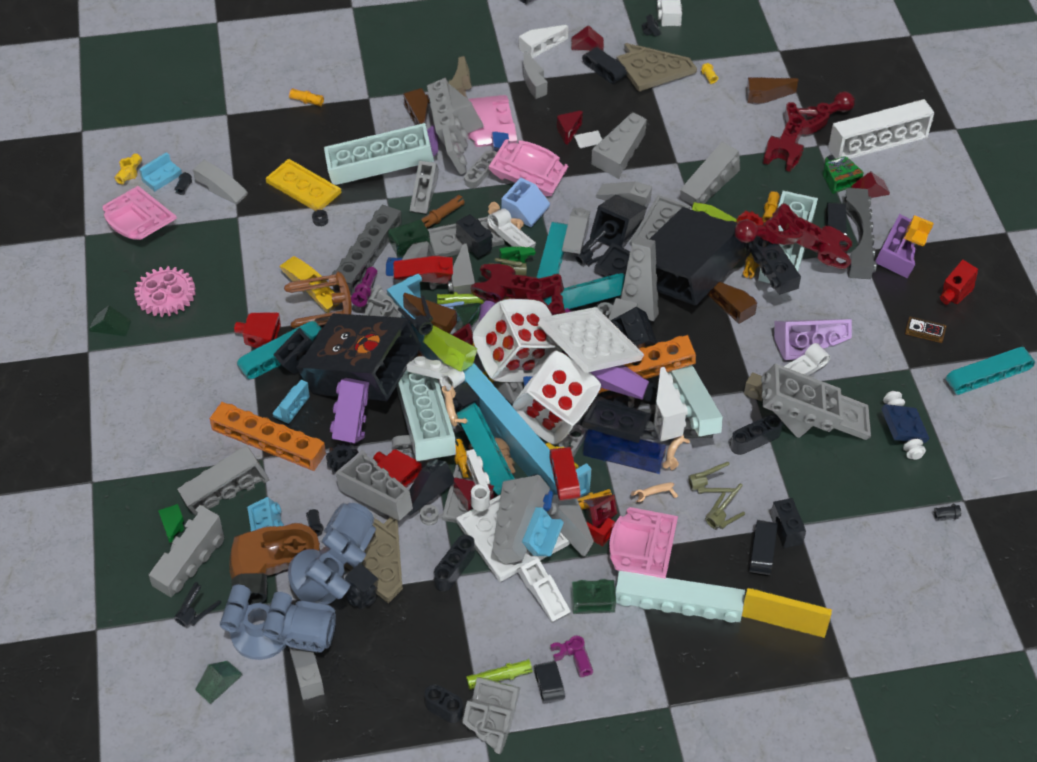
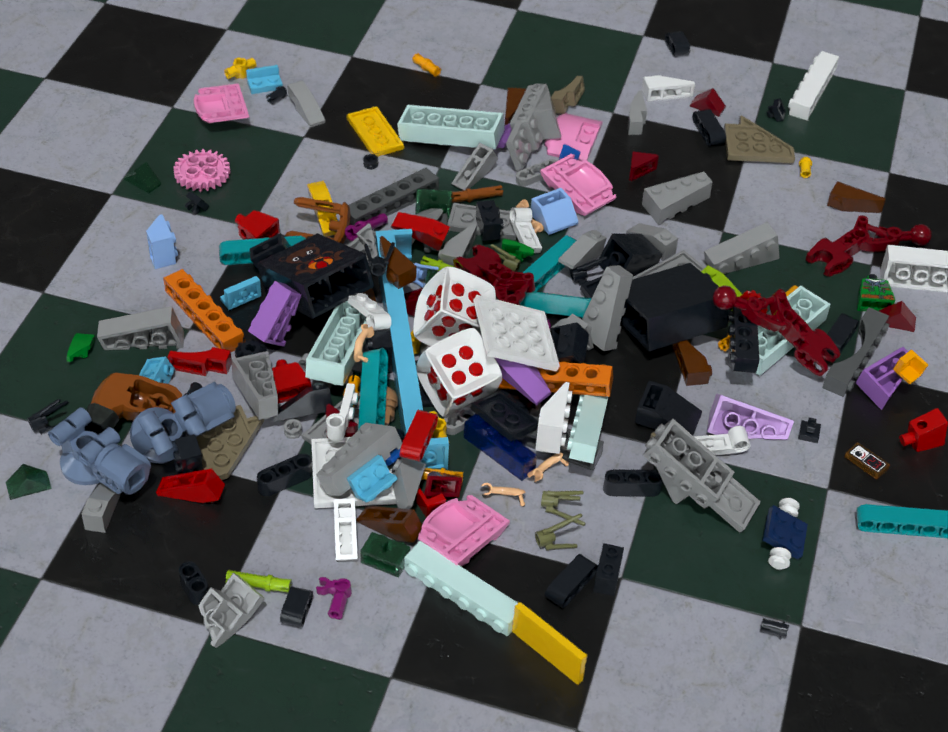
camera: 25 degrees right, 5 degrees down
(183, 384) = (161, 243): none -> light blue slope
(184, 326) = (195, 202): none -> black tile
(188, 552) = (72, 373): light grey wedge -> none
(300, 489) = (202, 362): none -> red slope
(377, 613) = (193, 486): none -> red slope
(450, 349) = (391, 297): lime slope -> none
(579, 564) = (392, 522): none -> reddish brown slope
(588, 139) = (651, 181): white sticker -> none
(742, 355) = (663, 404): none -> black slope
(865, 322) = (809, 430): none -> black tile

